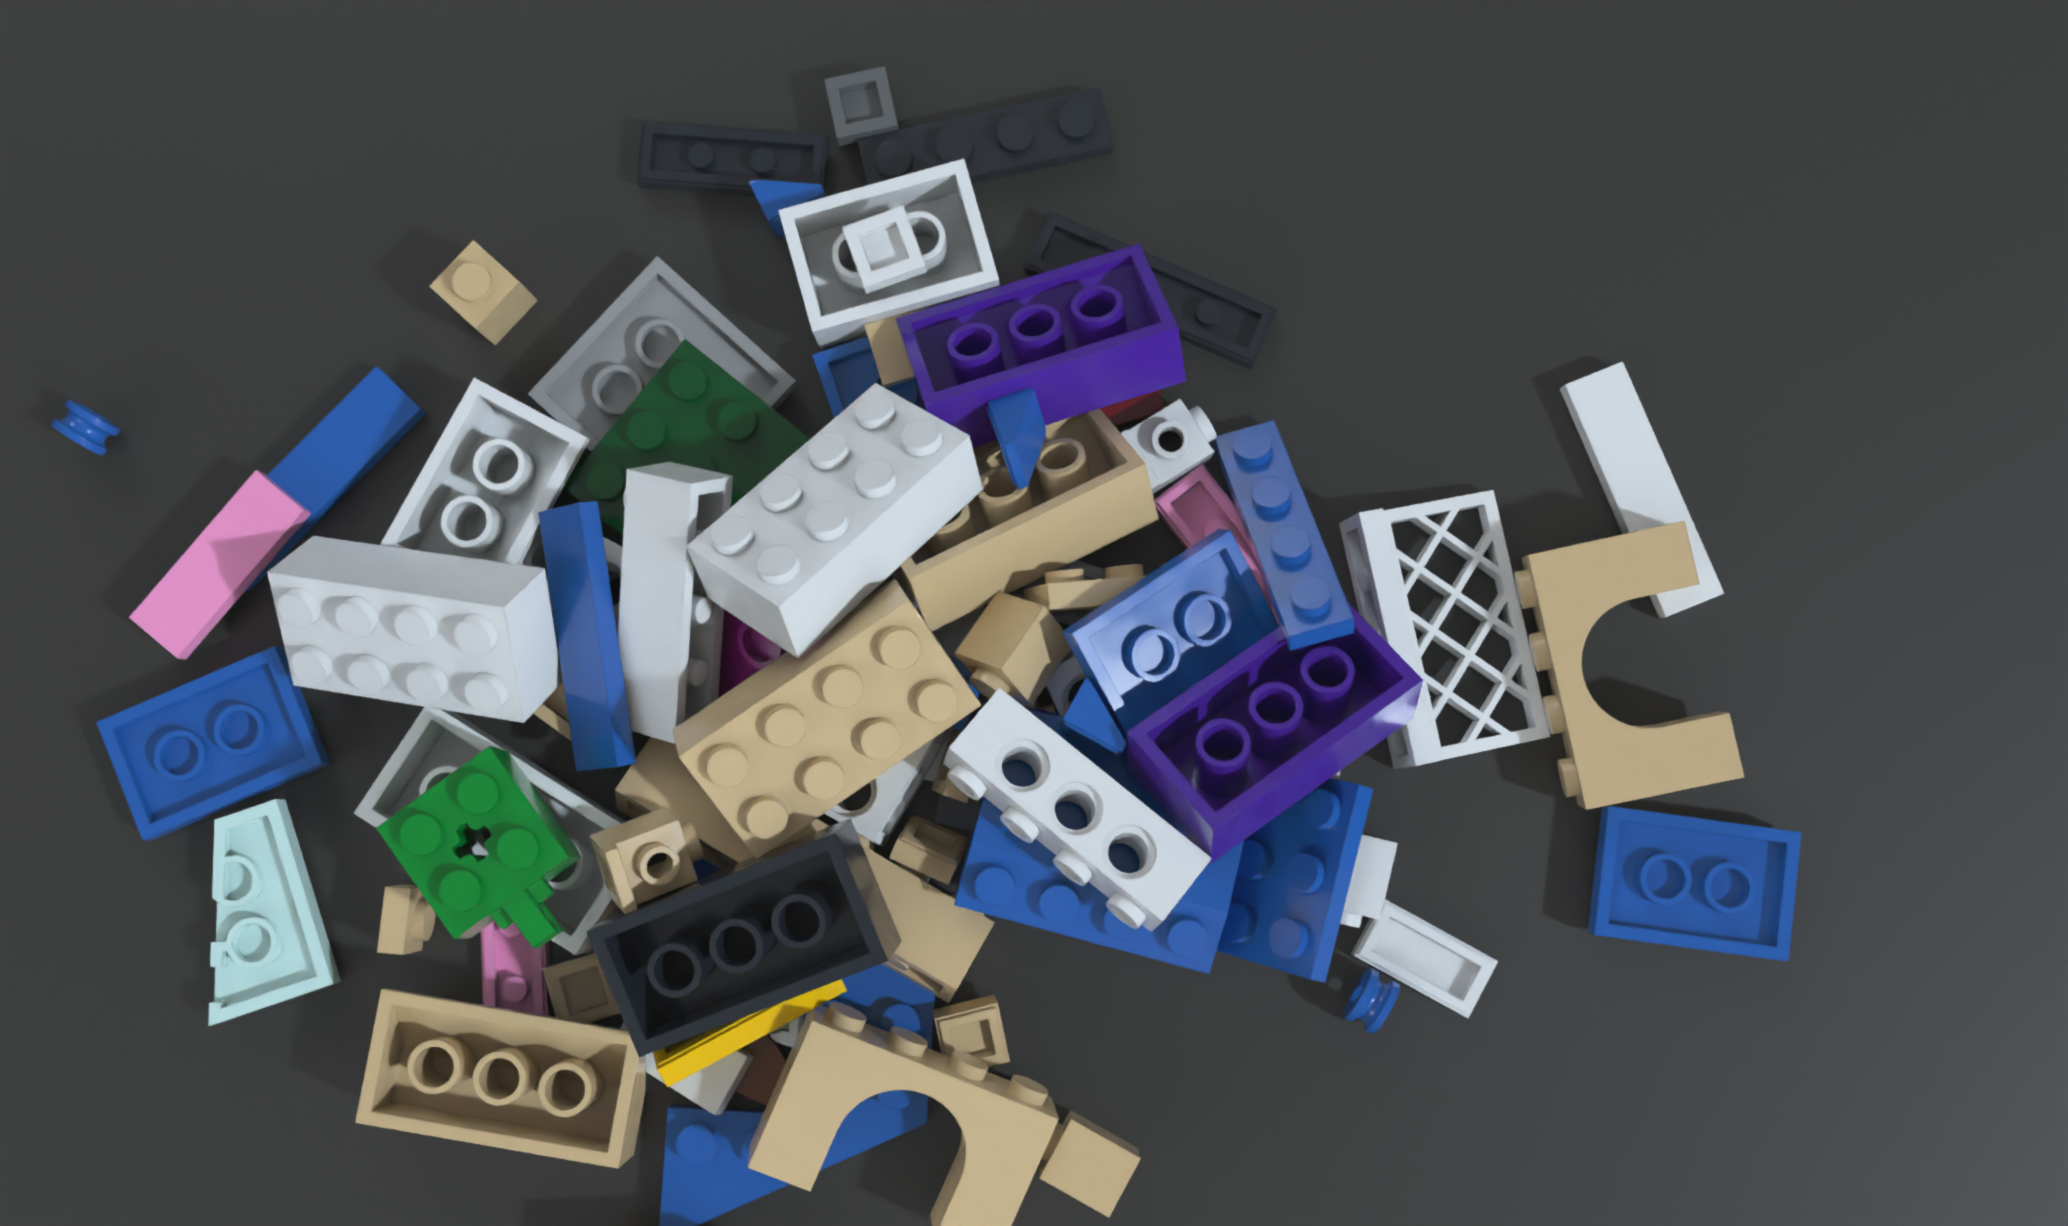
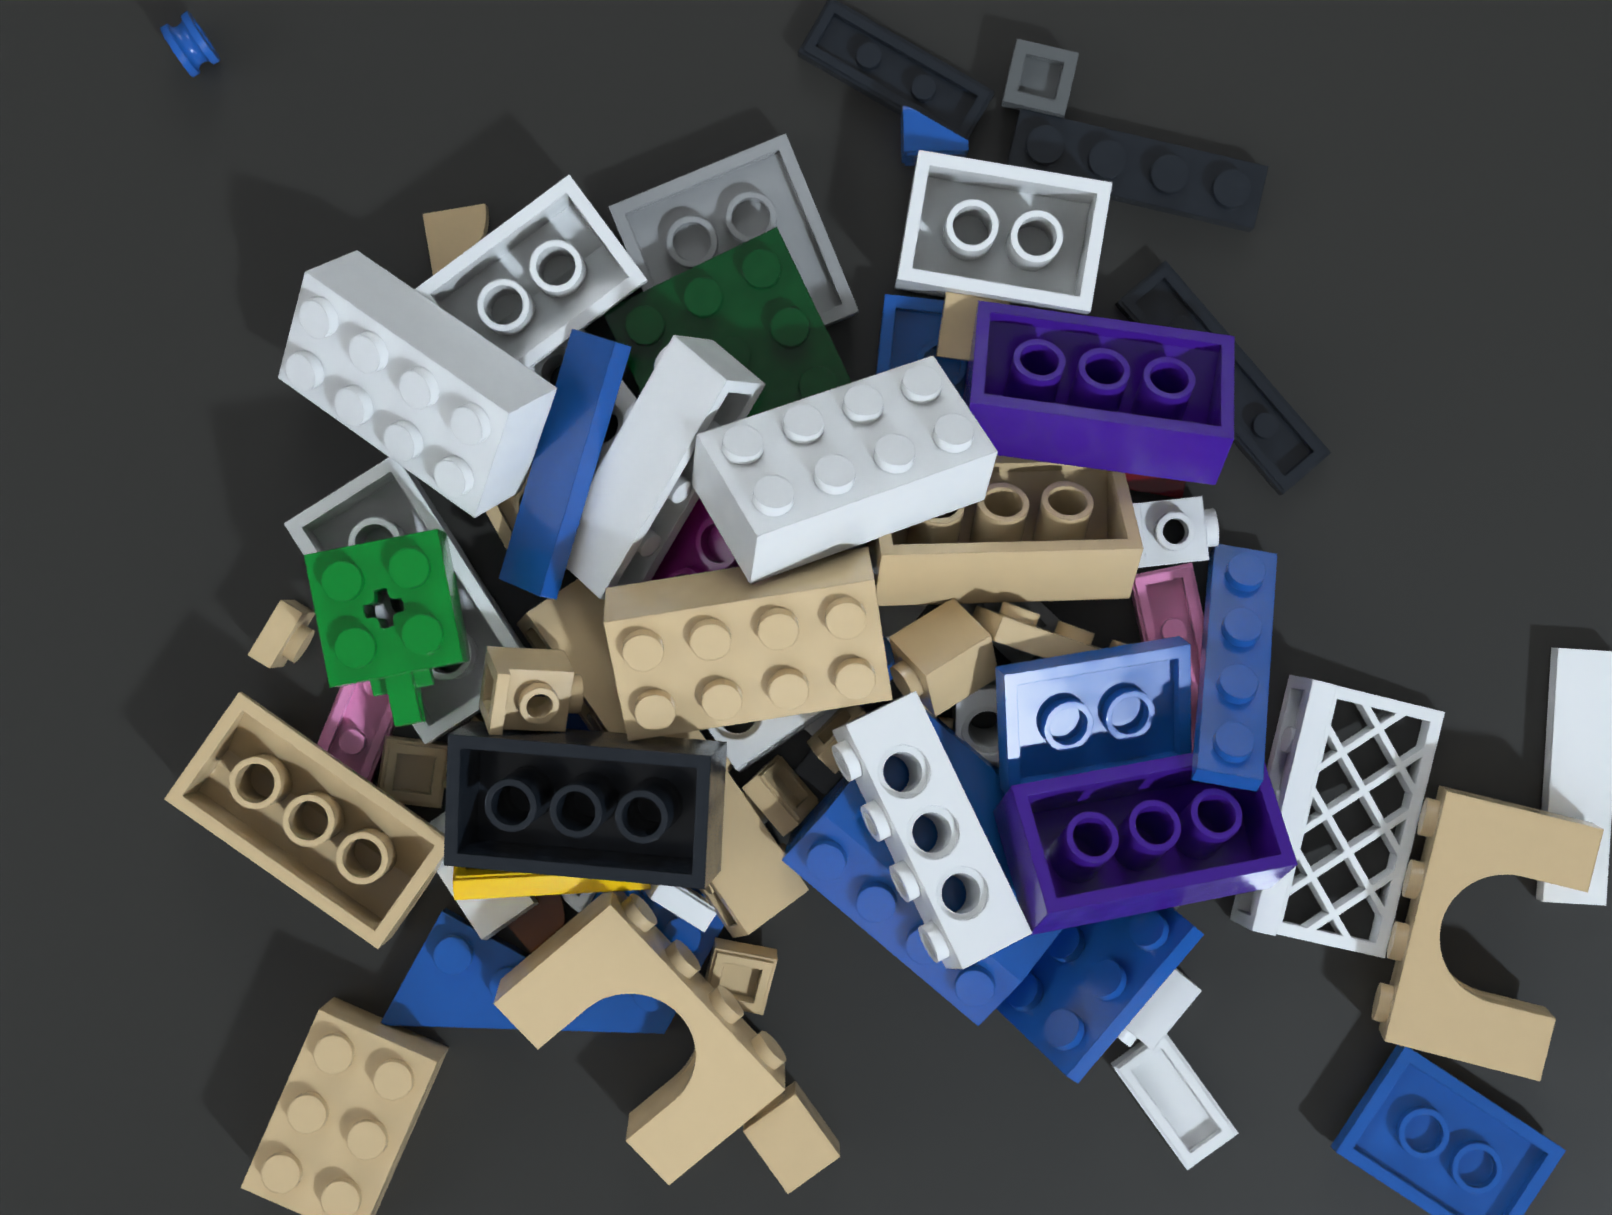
camera: 20 degrees right, 5 degrees up
(212, 743) = (180, 392): blue plate -> none
(220, 565) = (258, 233): bright pink tile -> none
(267, 915) = (160, 572): light aqua wing -> none
(344, 450) = (374, 189): blue tile -> none
(395, 480) = (454, 232): none -> tan tile
(483, 292) = (610, 92): tan brick -> none
(881, 988) = (684, 903): none -> white tile
(884, 249) = (1000, 236): white plate -> none
(1019, 432) = (1040, 464): blue slope -> none
(1092, 723) = (982, 757): blue slope -> none
(1371, 1000) = (1109, 1114): blue bush -> none

